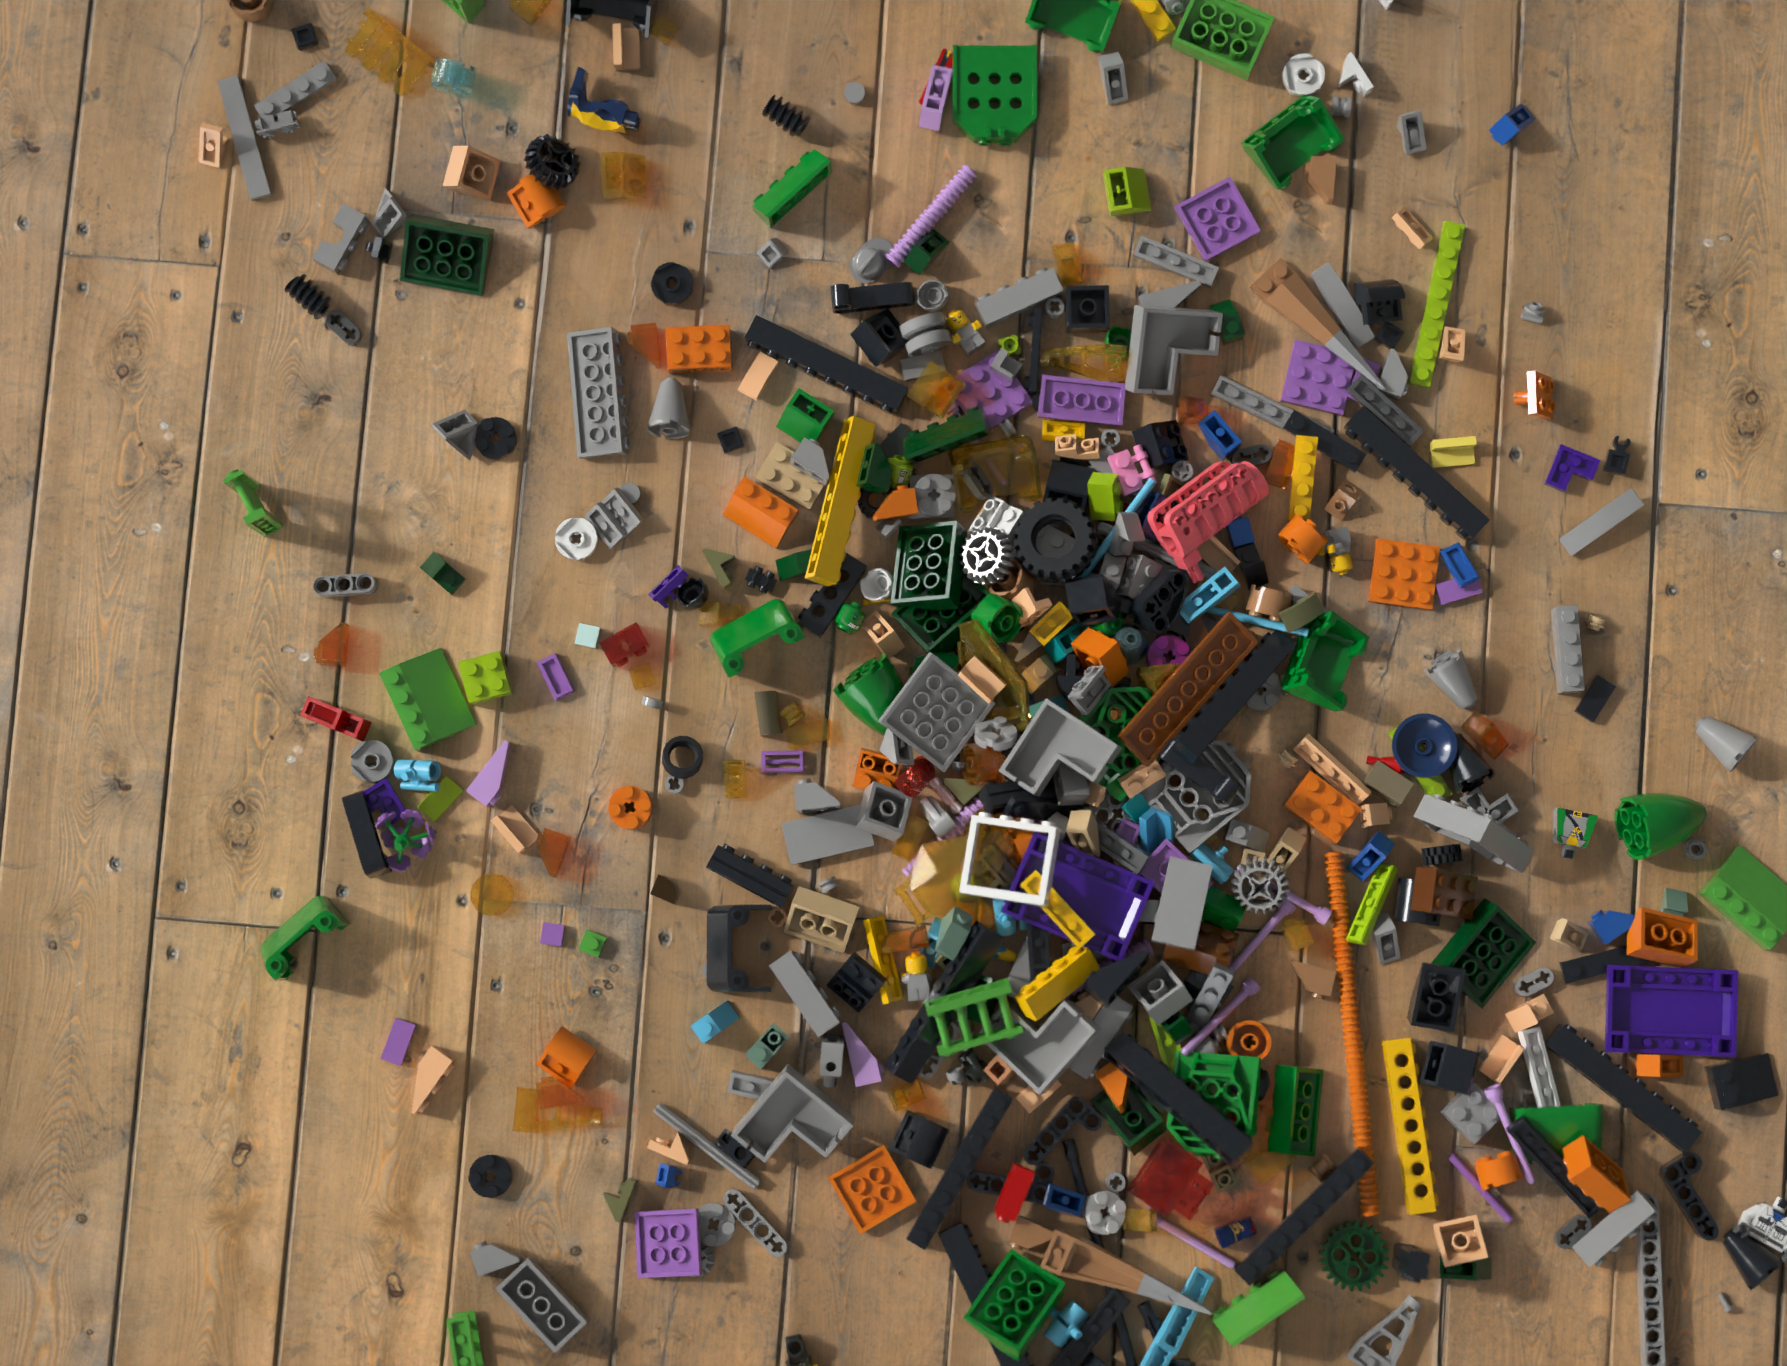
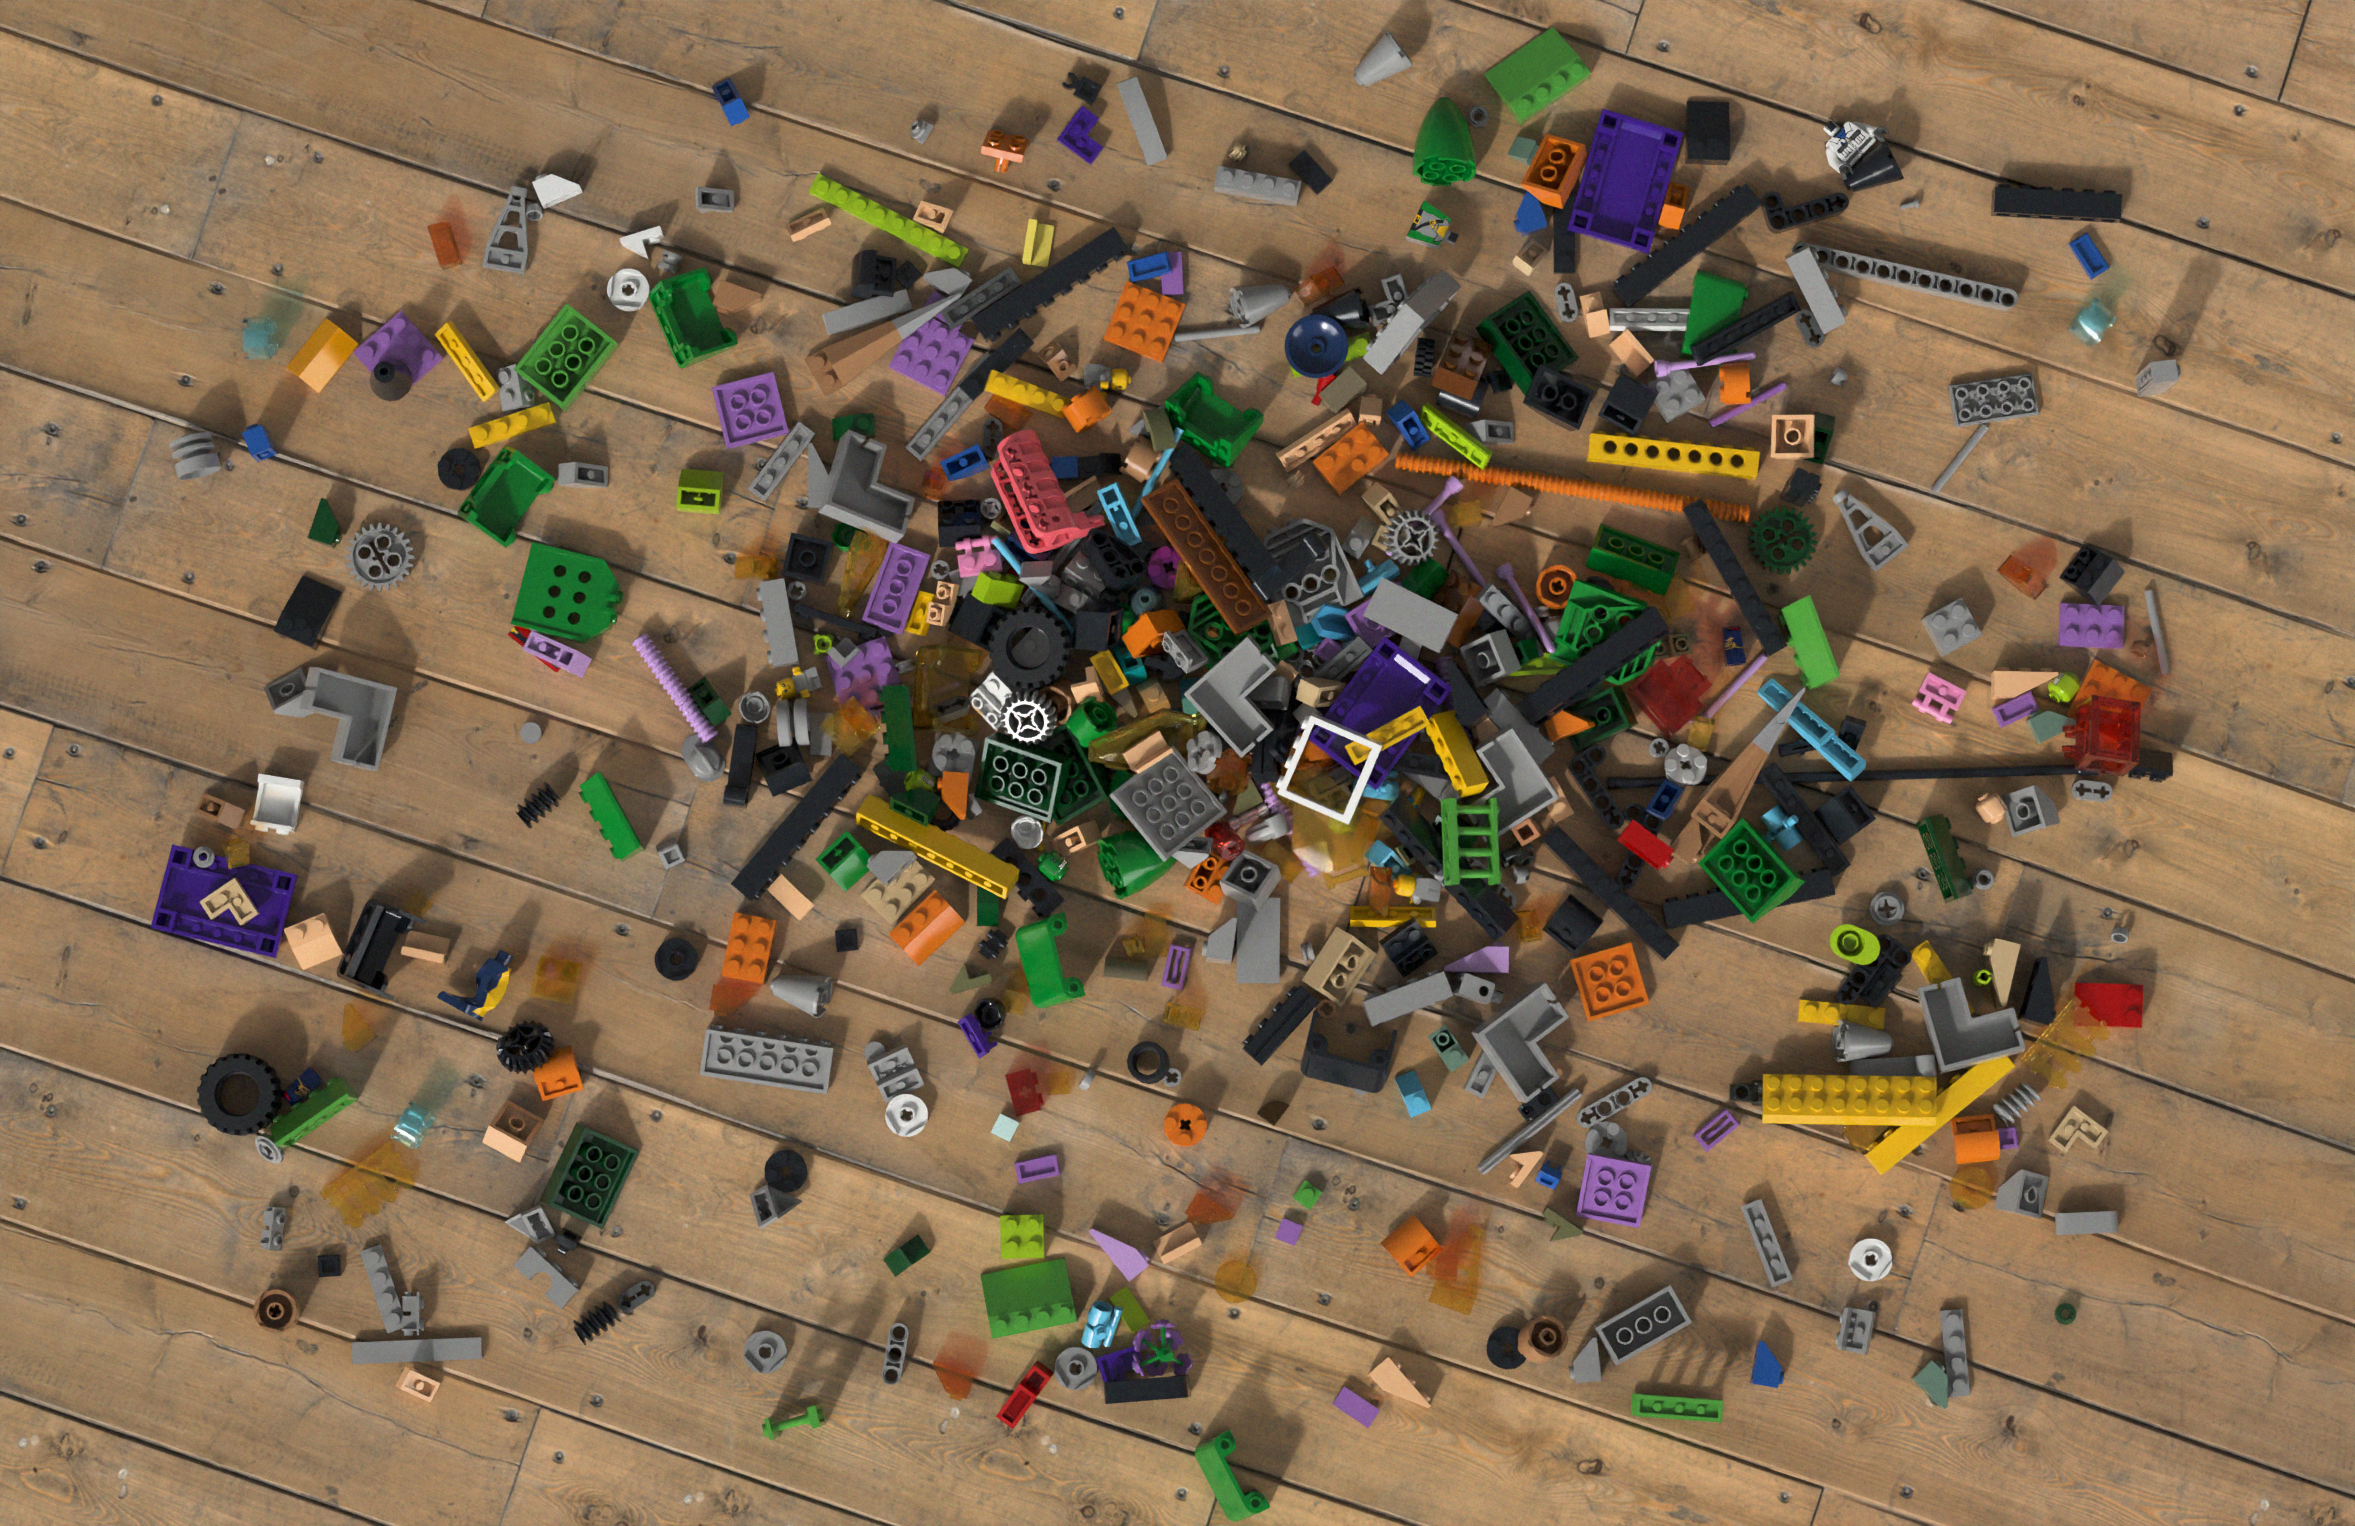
camera: 80 degrees left, 0 degrees up
(317, 450) = (765, 1364): none -> light grey plate
(508, 1199) = (1542, 1339): none -> medium nougat brick
(738, 1320) = (1702, 1141): none -> medium lavender tile
(953, 932) = (1384, 841): sand green slope -> none
(1411, 646) = (1213, 333): none -> light grey bar
(1437, 935) = (1499, 381): none -> black tile
(1532, 1272) = (1838, 376): none -> light grey hinge
(1596, 1174) = (1761, 293): orange brick -> none

